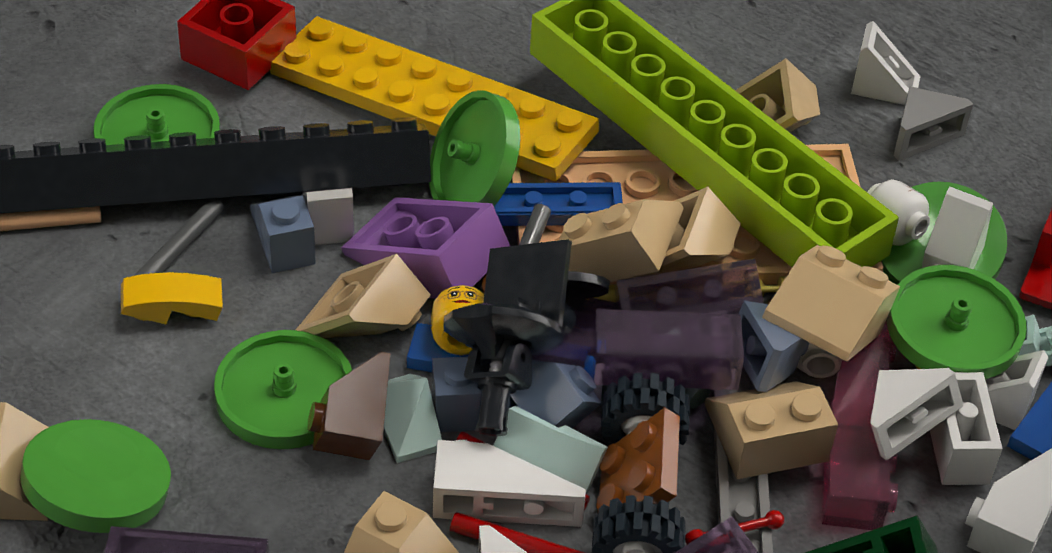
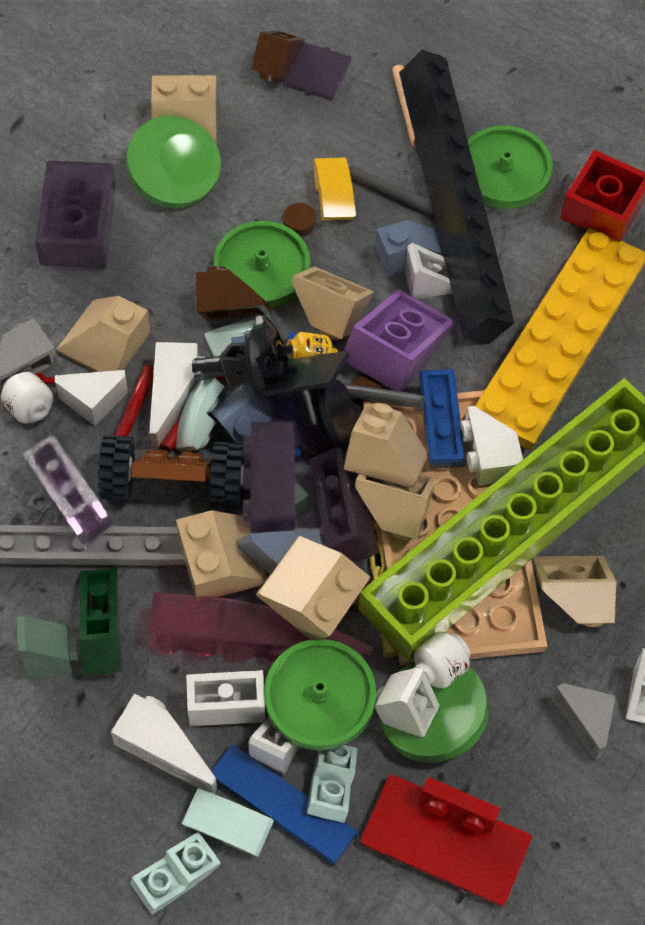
camera: 90 degrees right, 15 degrees up
(211, 342) = (300, 218): none -> reddish brown tile
(475, 149) = (472, 350): bright green piece -> none
(606, 153) = (491, 444): none -> white slope
(773, 519) = (138, 557): red hinge -> none
(910, 405) = (216, 636): white slope -> none

